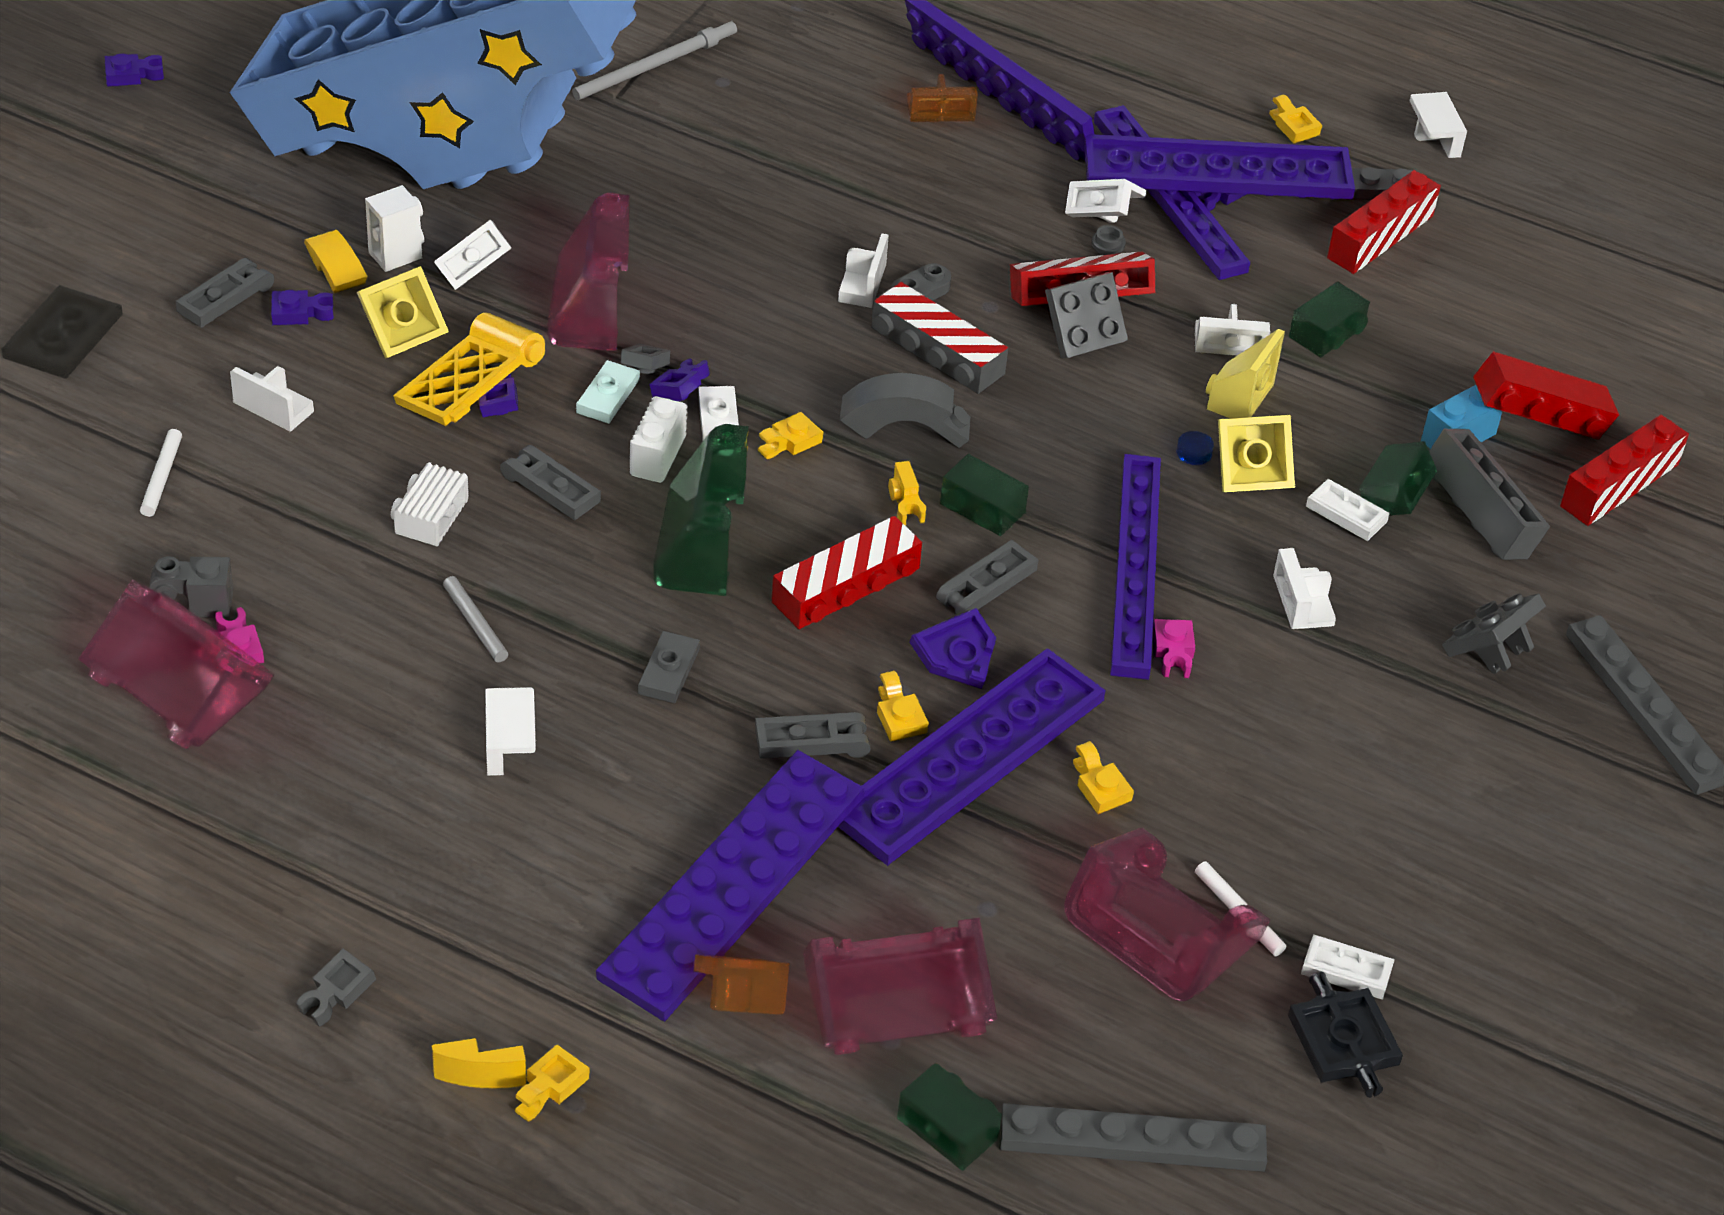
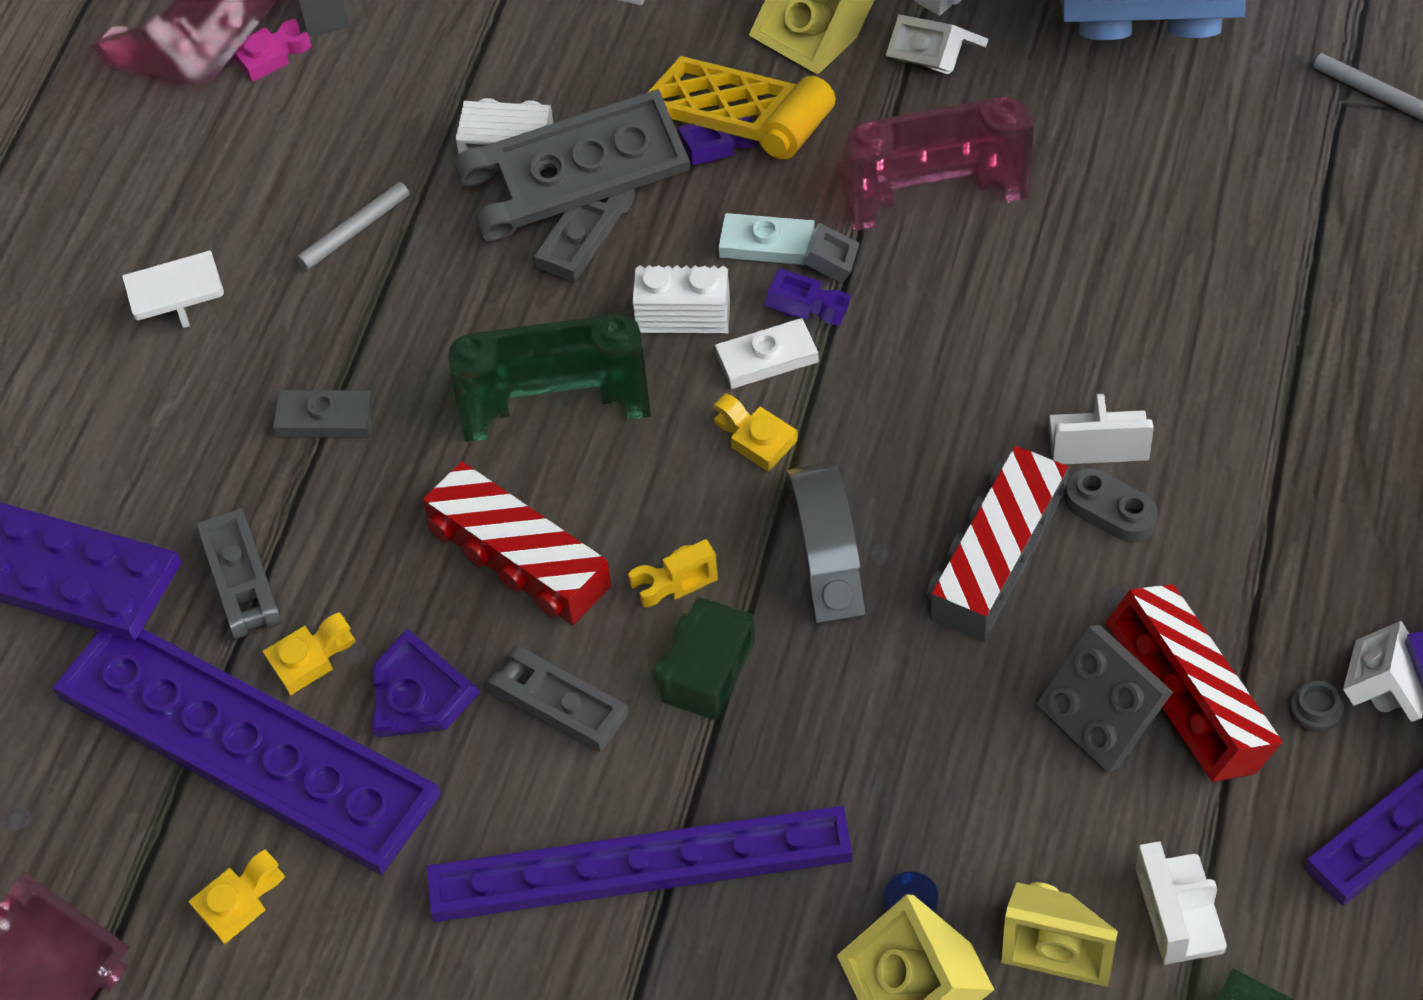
camera: 85 degrees right, 10 degrees up
(500, 441) = (593, 158): none -> dark grey hinge
(1174, 644) = (514, 941): dark pink plate -> none

